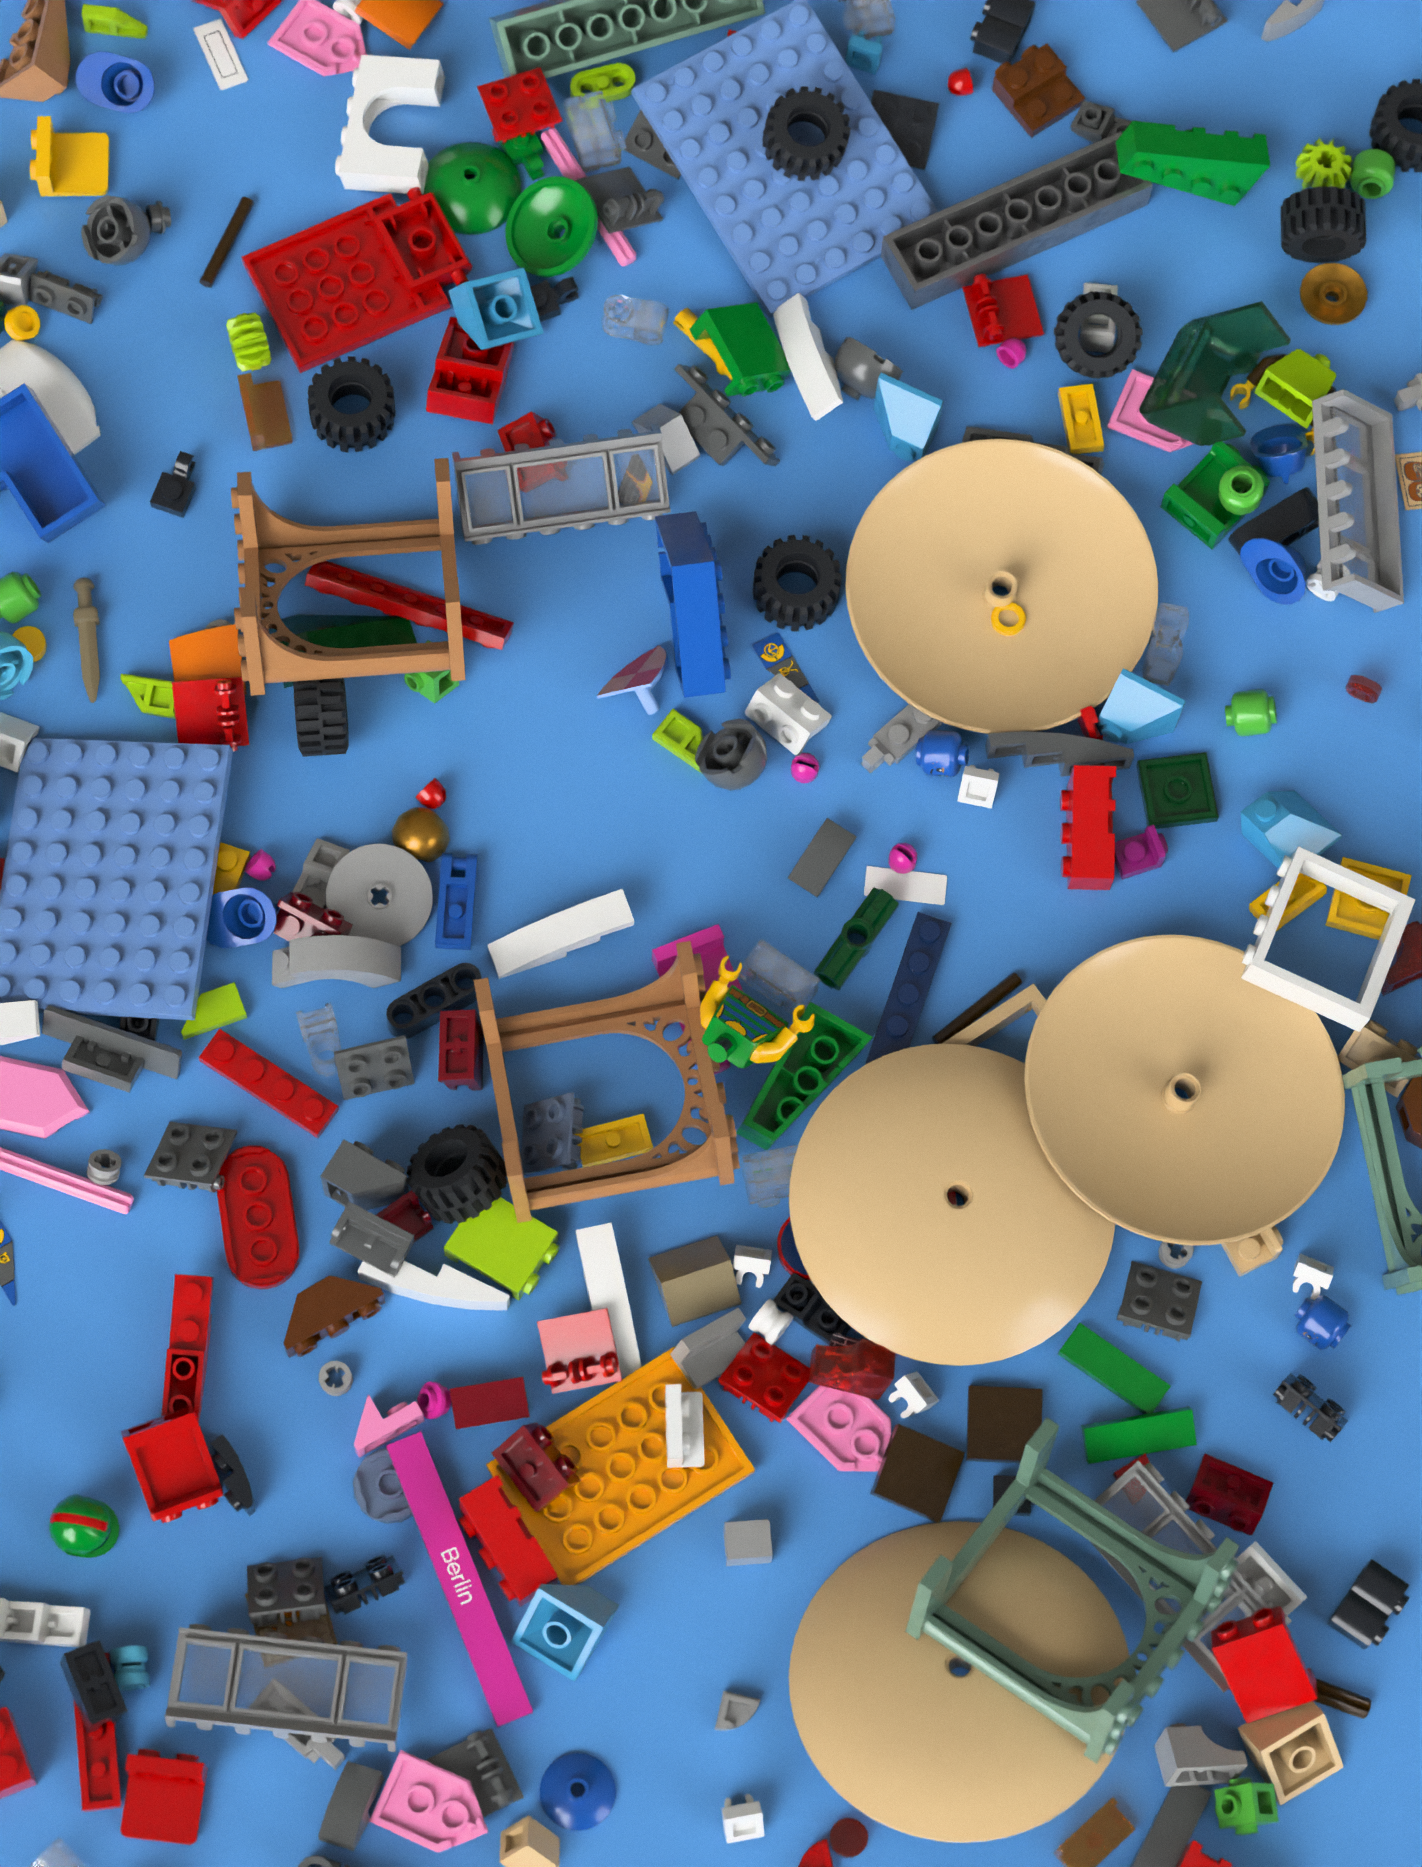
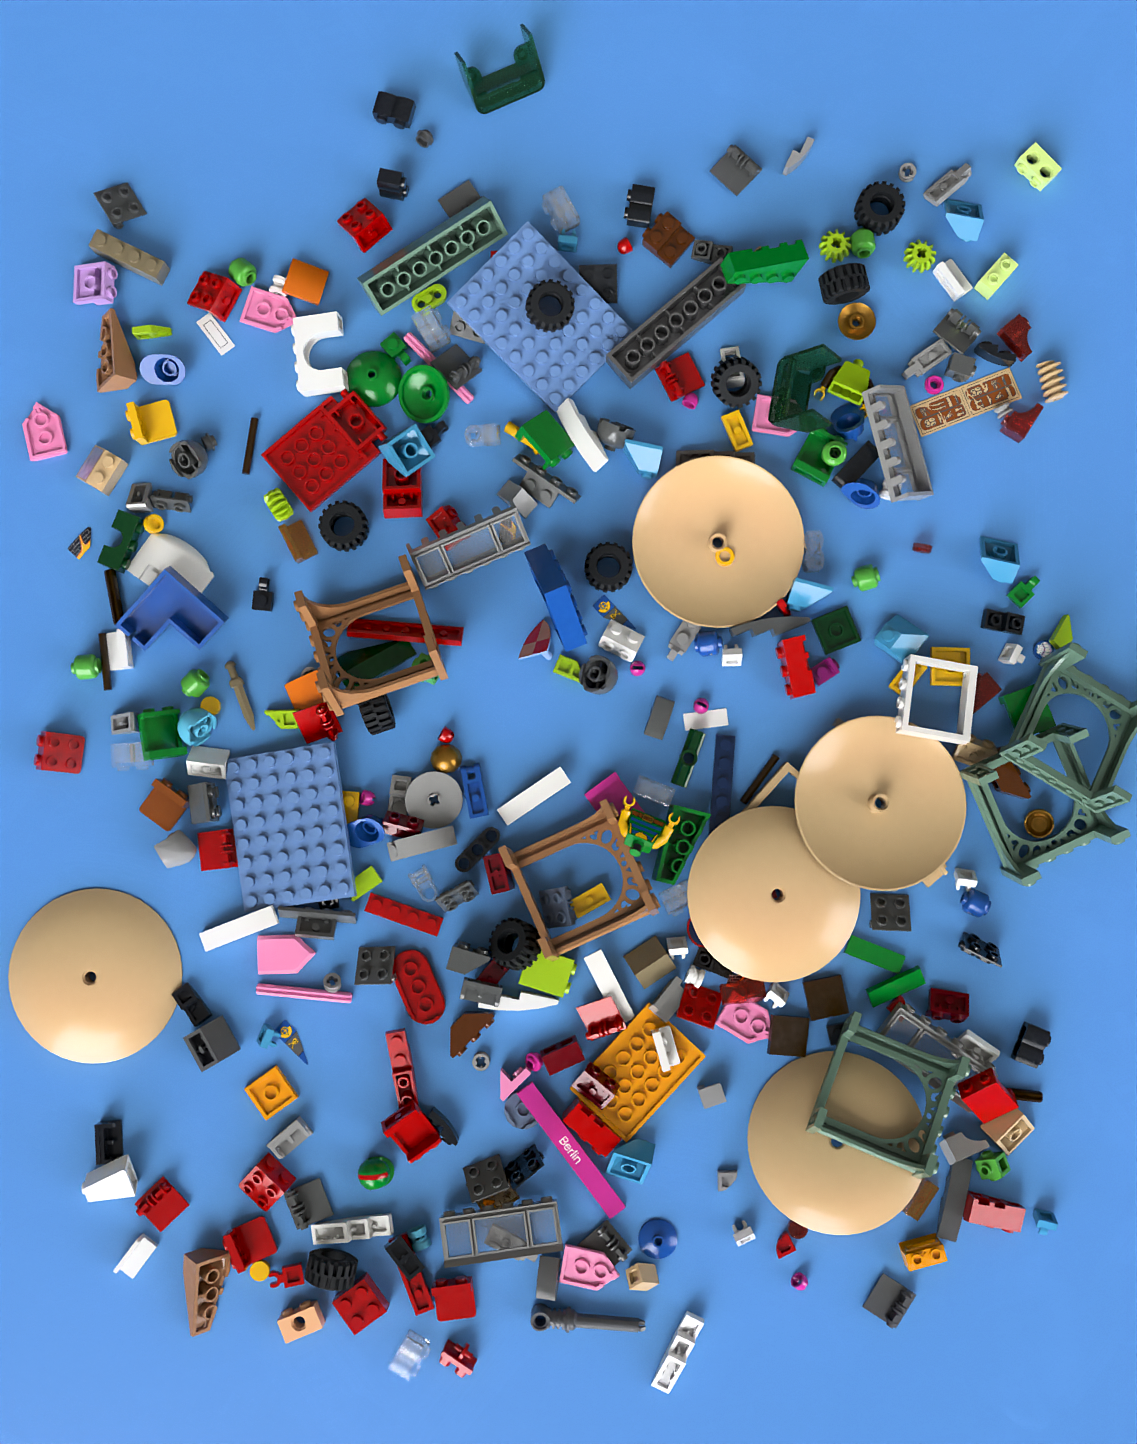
camera: 10 degrees left, 15 degrees up
(519, 105) = (387, 326): red hinge -> none

